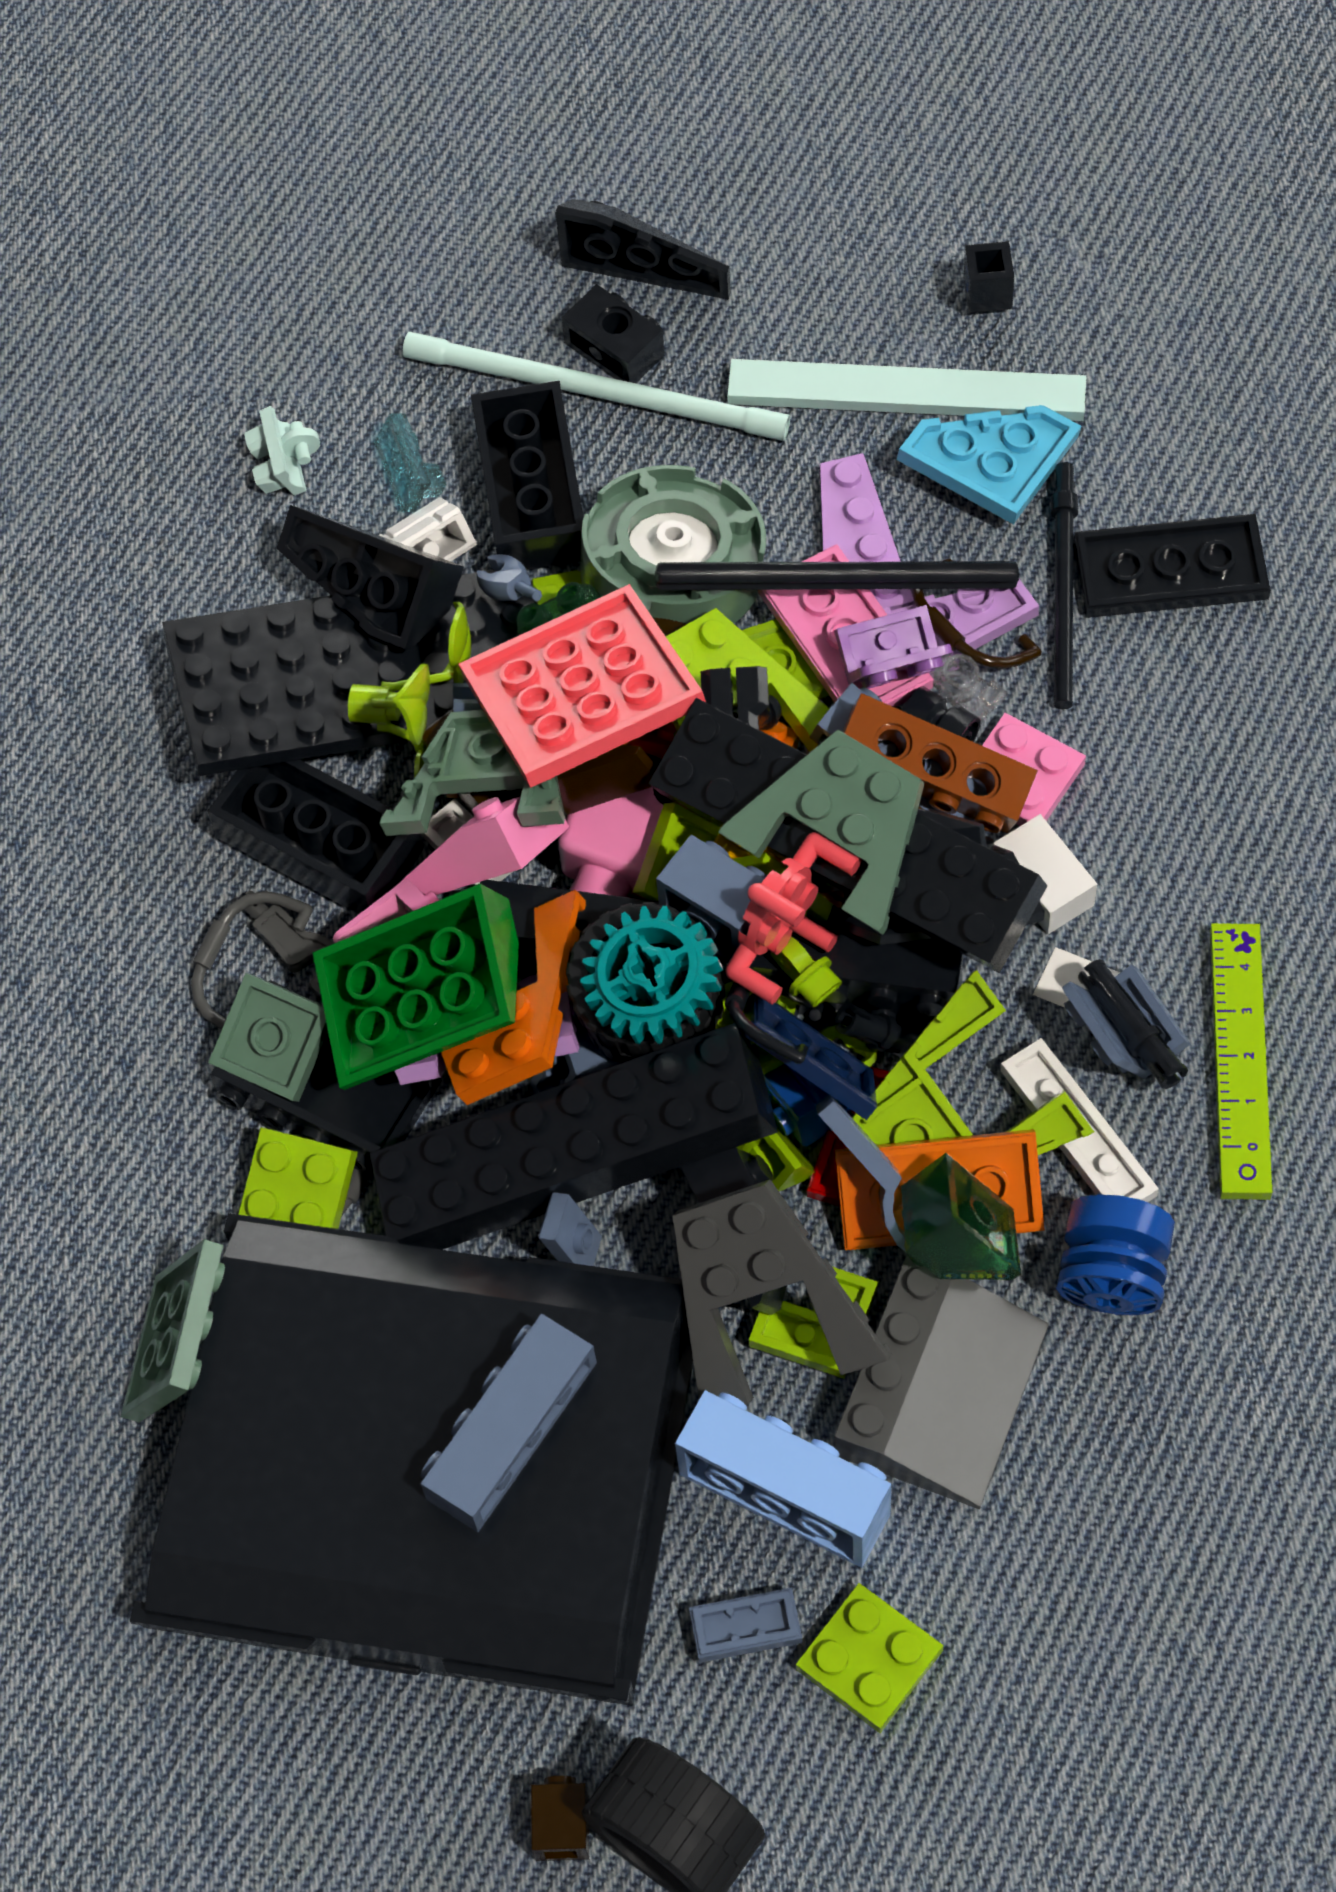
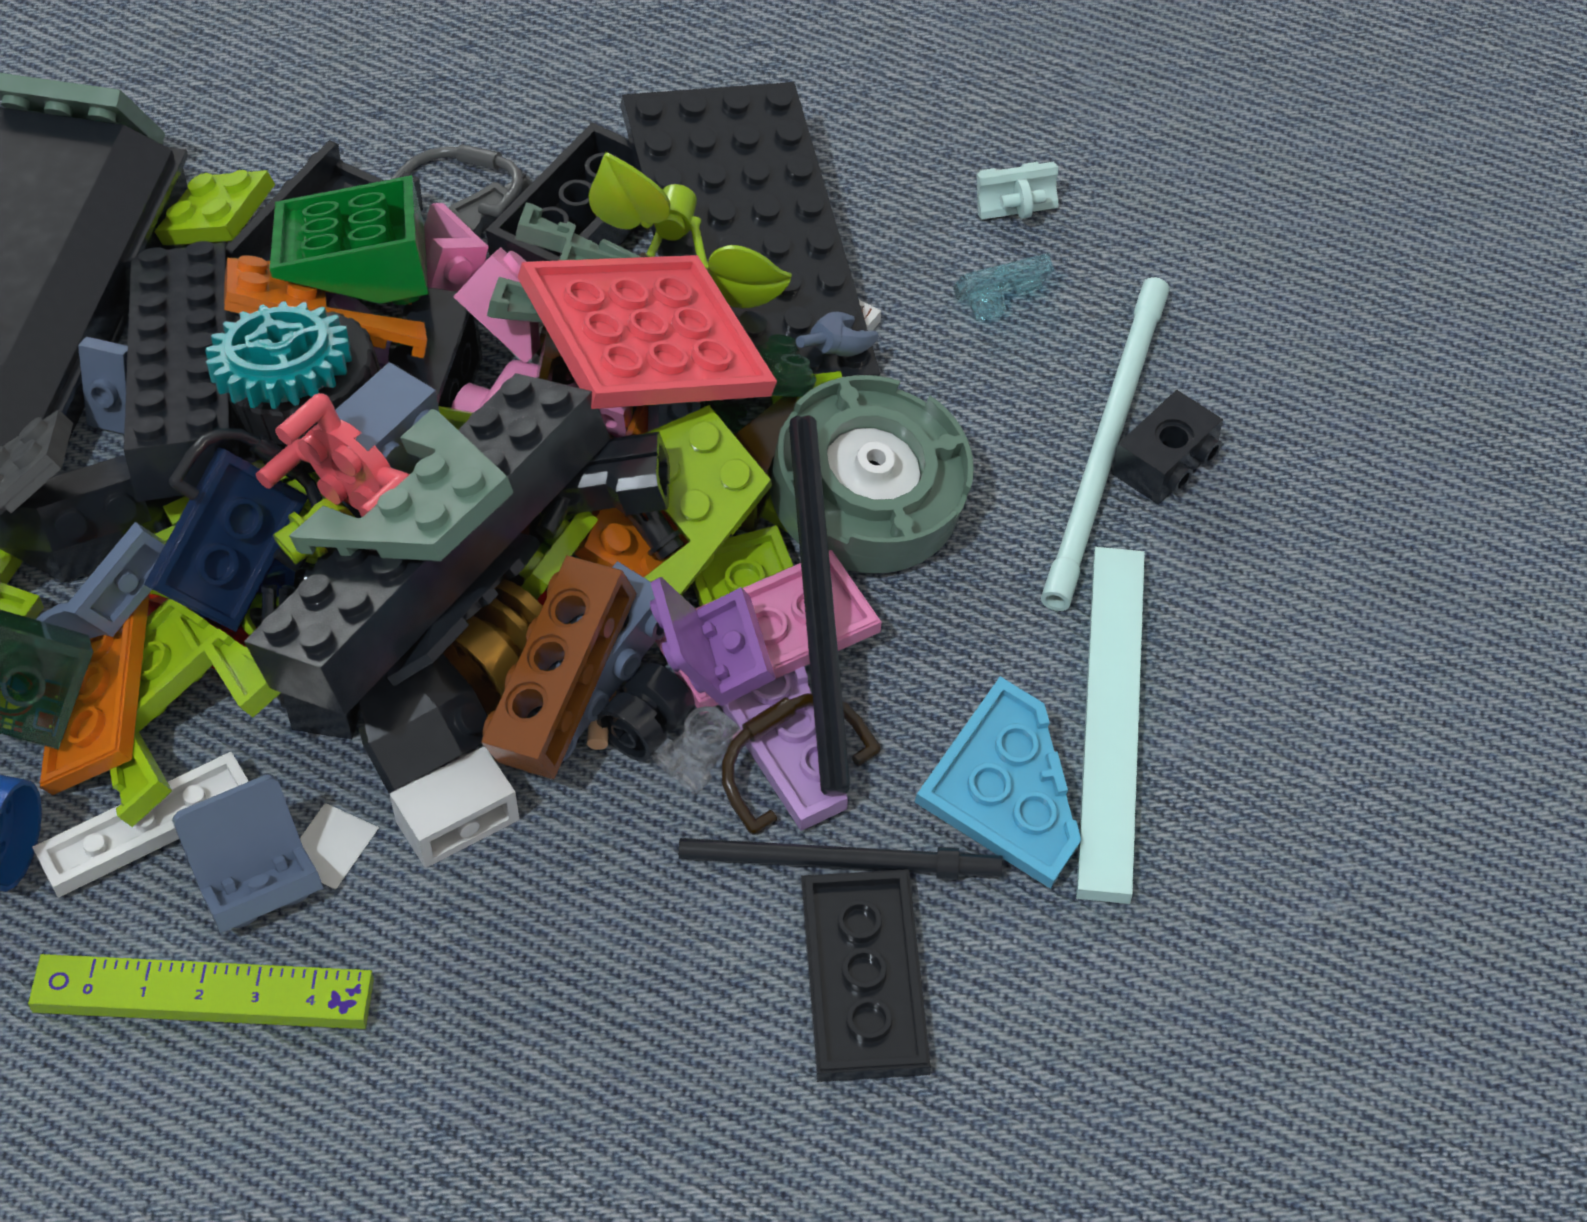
camera: 85 degrees right, 10 degrees down
(271, 1037) = (361, 164): sand green plate -> none
(380, 582) = (840, 231): black wedge -> none
(435, 529) = (899, 287): white brick -> none
(529, 474) = (986, 363): black brick -> none
(621, 246) = (1293, 452): black wedge -> none
(857, 522) = (922, 662): lavender wing -> none
(988, 277) = (1260, 788): black brick -> none
(1055, 762) = (594, 803): bright pink plate -> none
(1143, 1038) = (240, 865): black pin -> none

